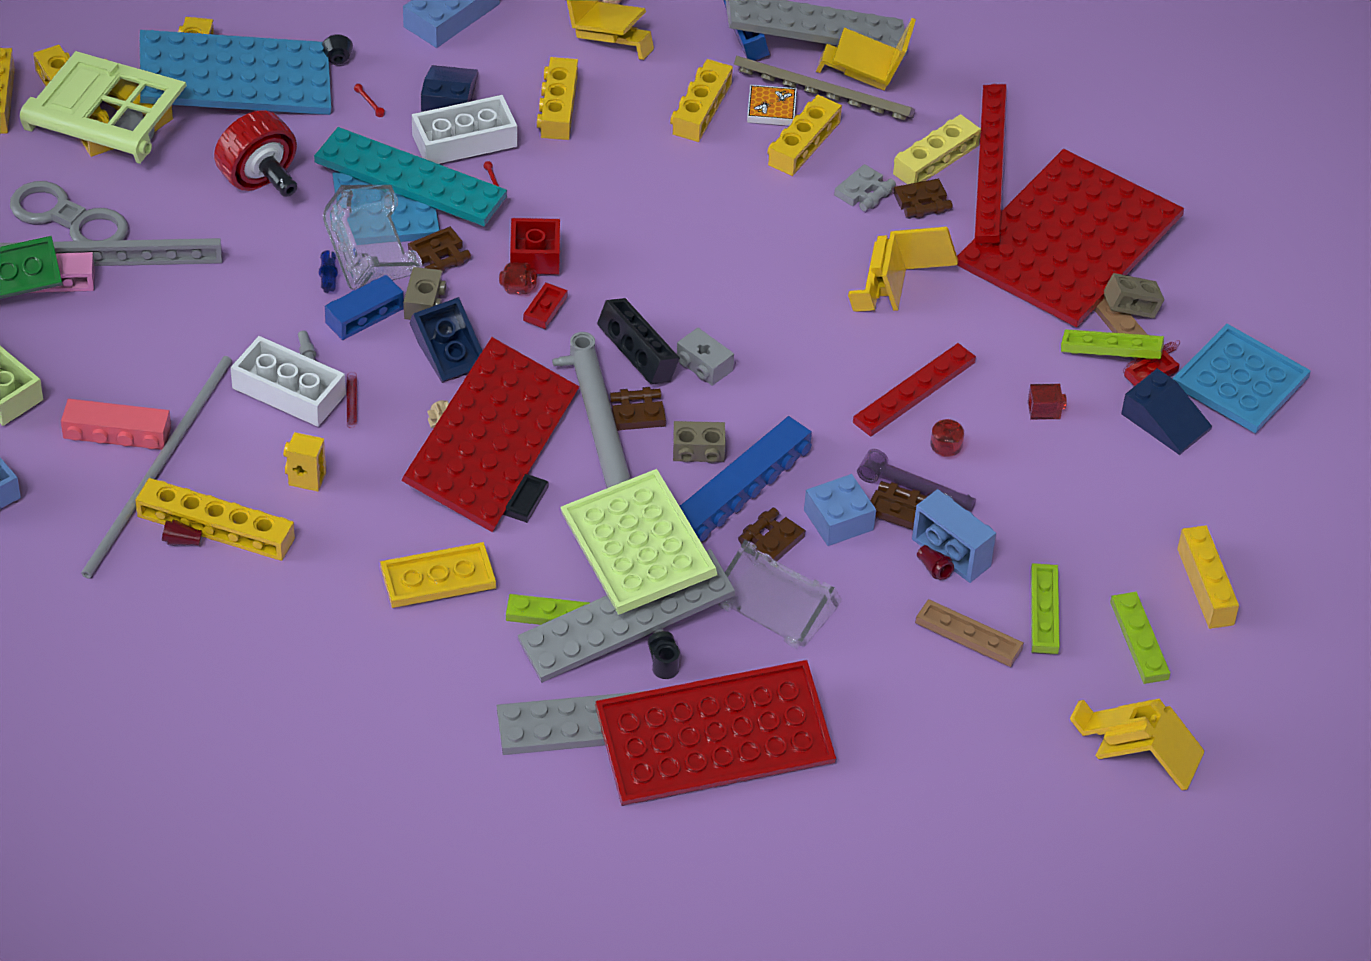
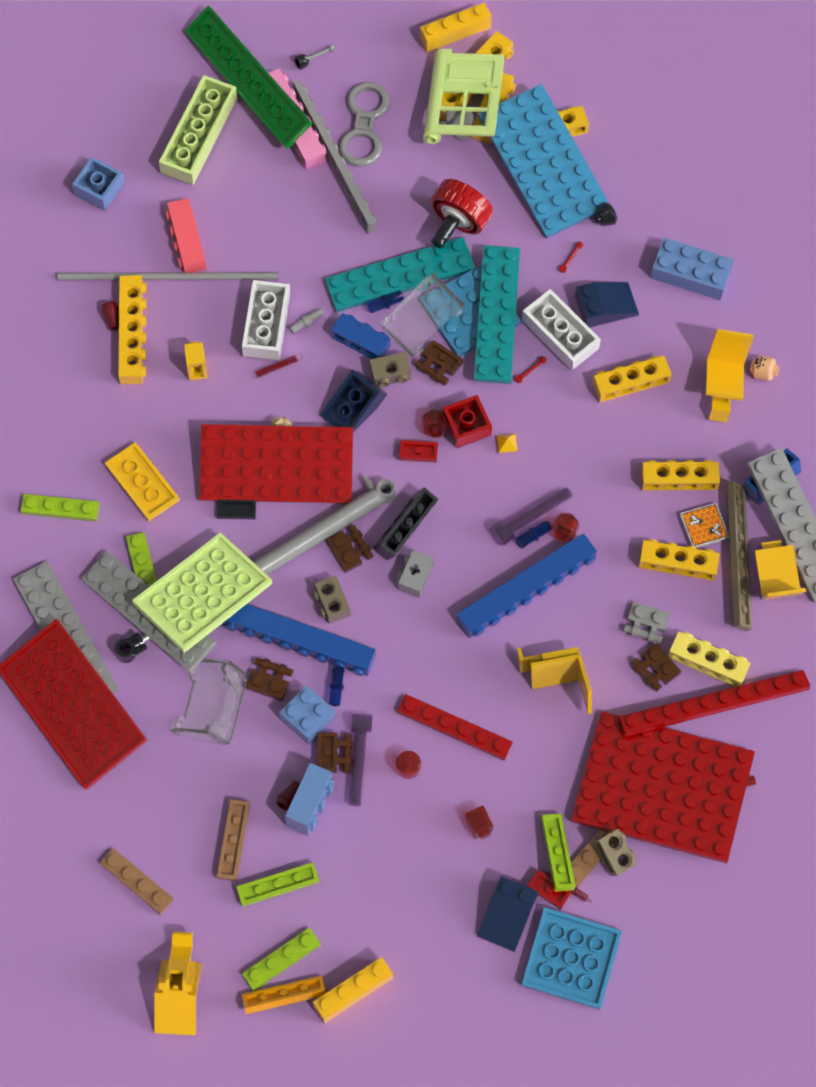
camera: 70 degrees right, 20 degrees up
(296, 254) = (398, 273): none -> teal plate
(425, 672) = (60, 507): none -> lime plate
(577, 230) = (507, 443): none -> yellow slope
(689, 263) = (504, 532): none -> clear purple piece
(707, 243) = (533, 534): none -> clear blue axle
(714, 211) = (565, 527): none -> clear red head
(771, 268) = (526, 585): none -> blue brick
(810, 473) = (336, 686): none -> clear blue axle
(980, 747) = (136, 881): none -> medium nougat plate
(1188, 644) = (283, 994): none -> light orange plate

